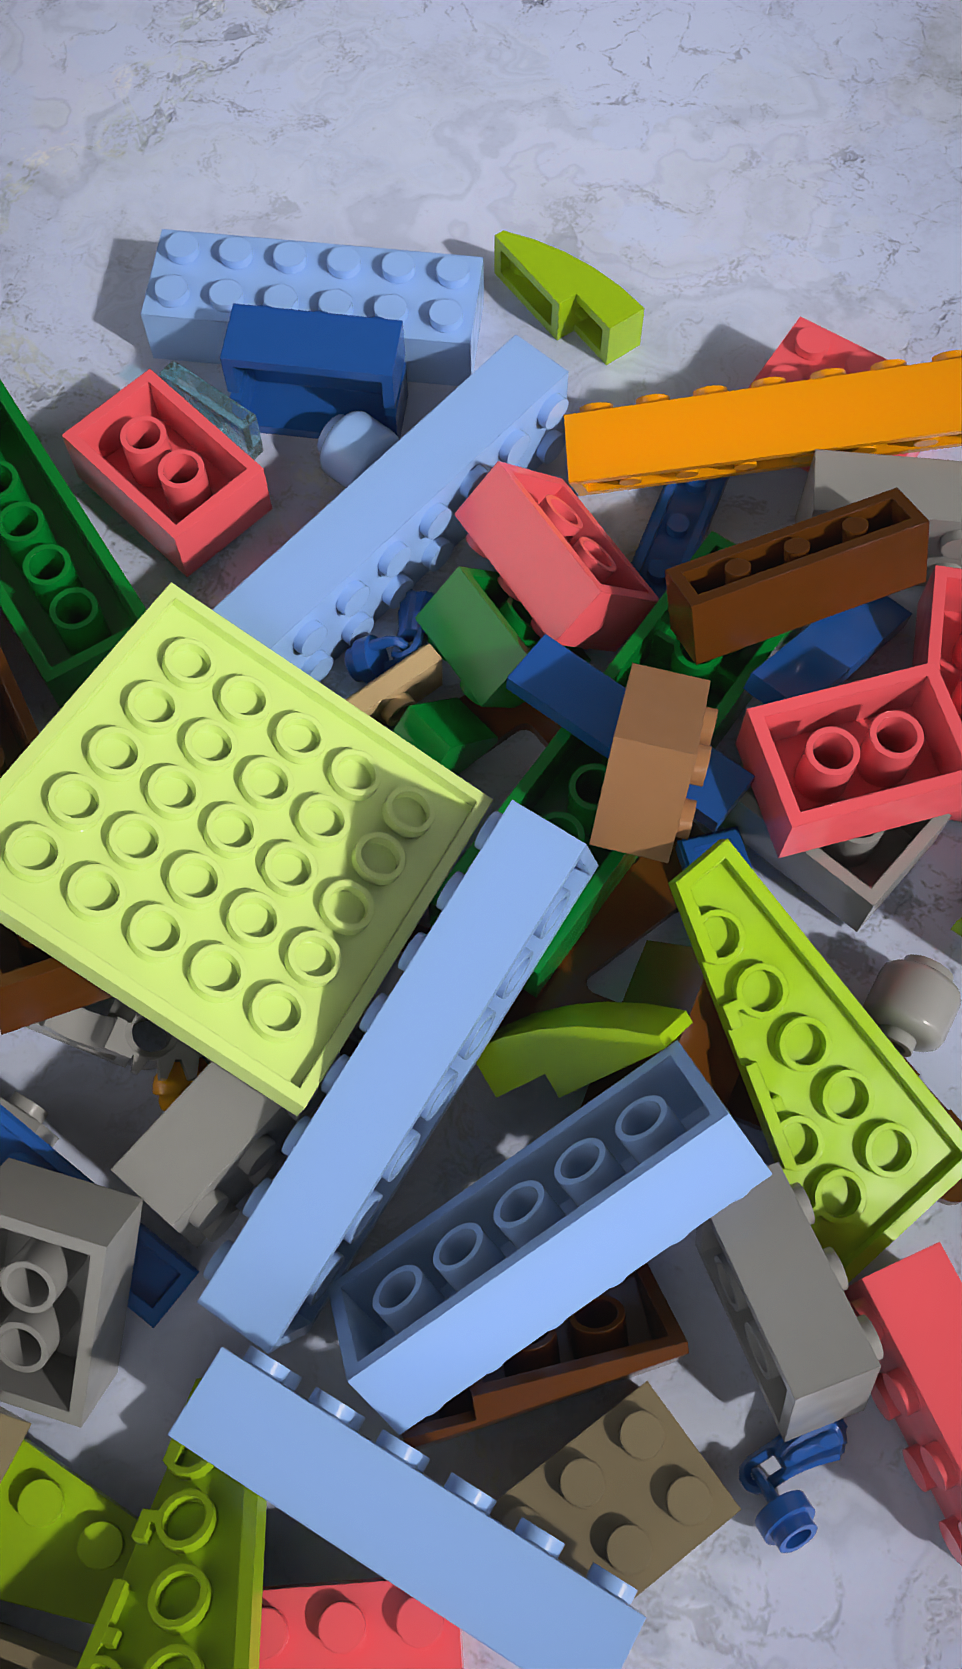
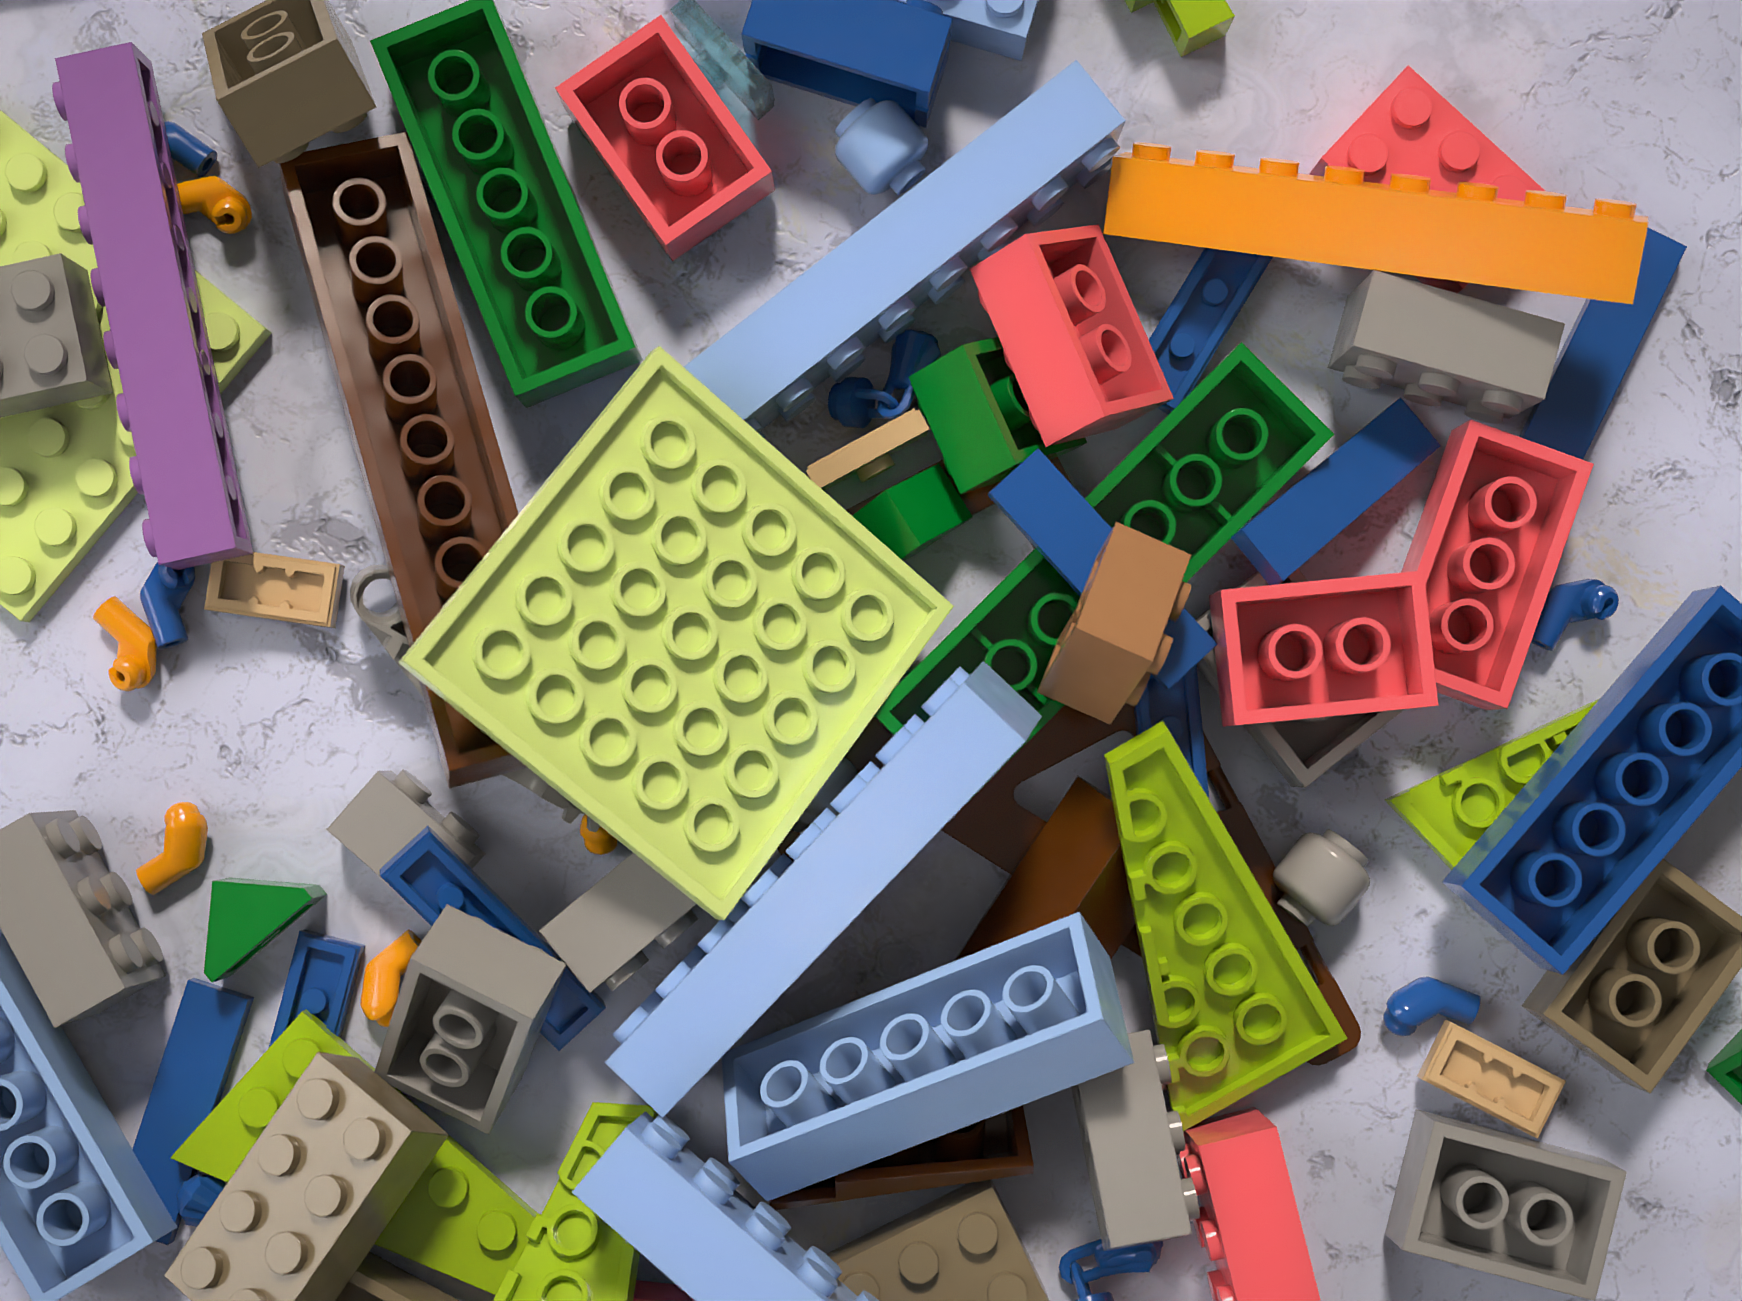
camera: 10 degrees right, 20 degrees up
(577, 1044) = (996, 876): lime slope -> none
(797, 575) = (1313, 434): reddish brown brick -> none

